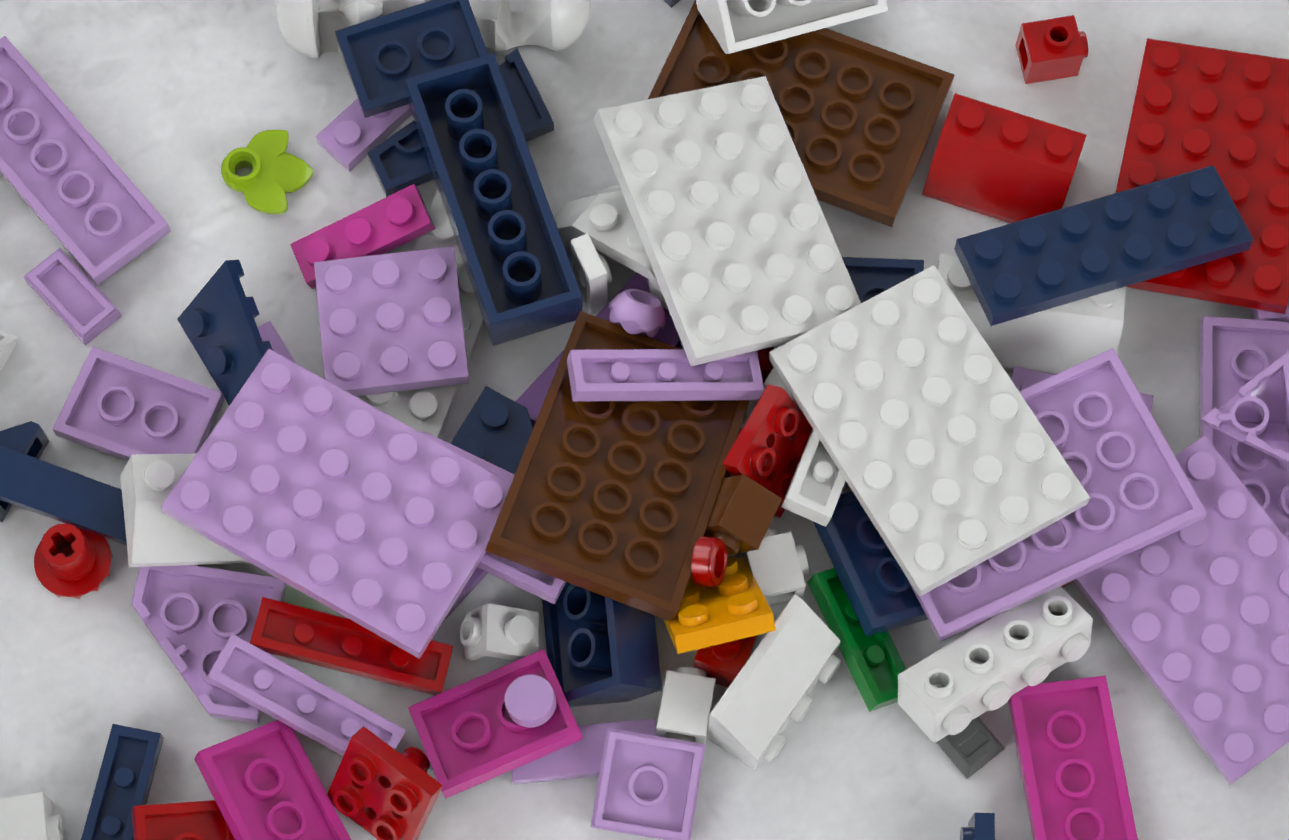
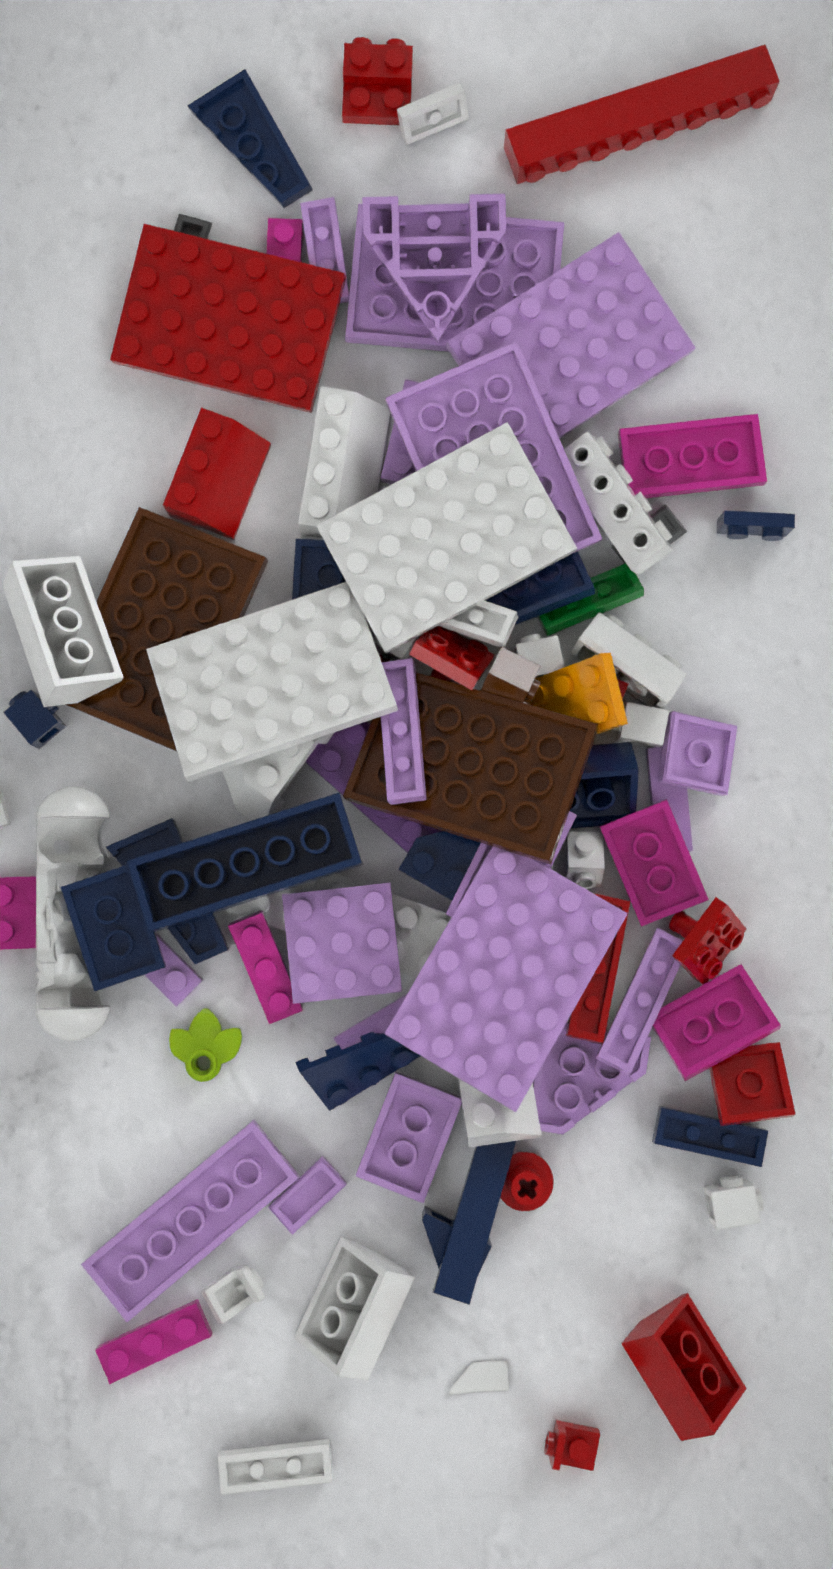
camera: 90 degrees left, 15 degrees up
(530, 701) = (644, 835): lavender tile -> none
(590, 273) = (307, 788): white plate -> none
(637, 312) = (343, 753): lavender plate -> none
(709, 561) = (550, 701): red tile -> none
(1051, 49) = (118, 432): red brick -> none
(1102, 245) = (297, 401): dark blue plate -> none

